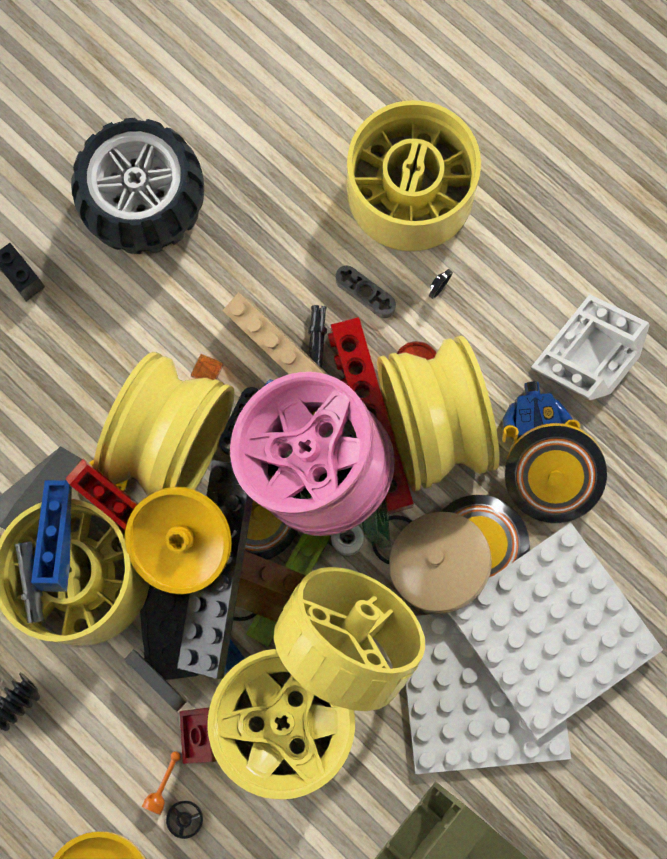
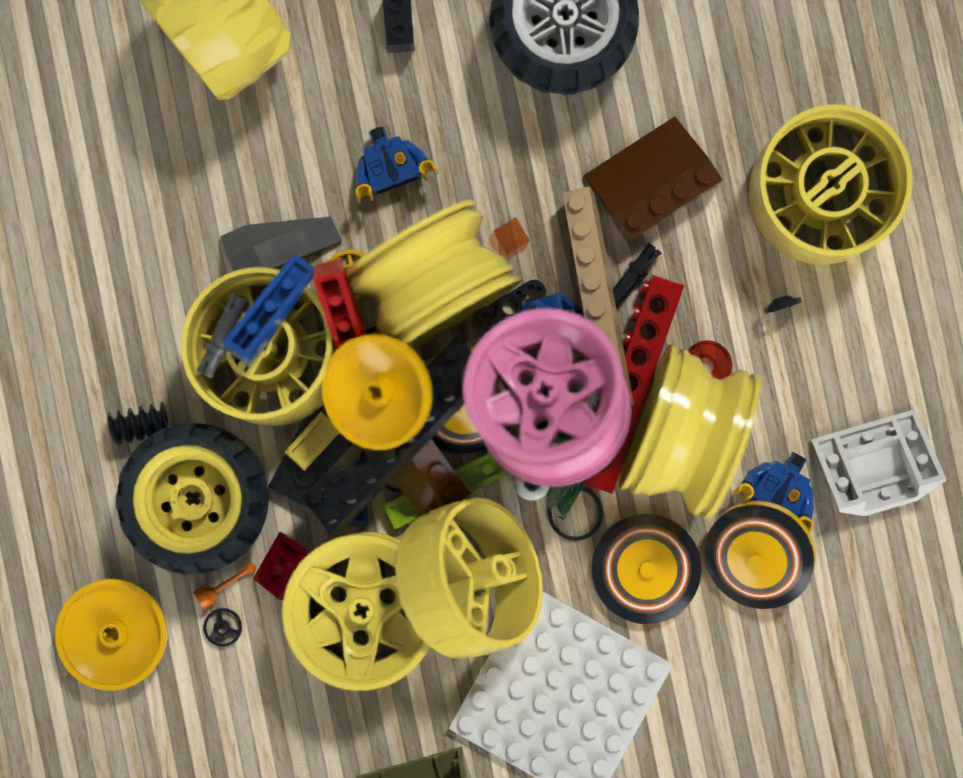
camera: 30 degrees right, 10 degrees up
(48, 746) = (160, 534): none -> wheel
(80, 377) = (389, 165): none -> blue torso
(155, 680) = (276, 492): dark grey beam -> none
(158, 621) = (312, 441): none -> light yellow tile
(284, 260) = (653, 179): none -> reddish brown slope
(364, 281) = (696, 244): dark grey beam -> none
(440, 562) = (599, 562): tan dish -> none
(555, 631) = (658, 691): white plate -> none

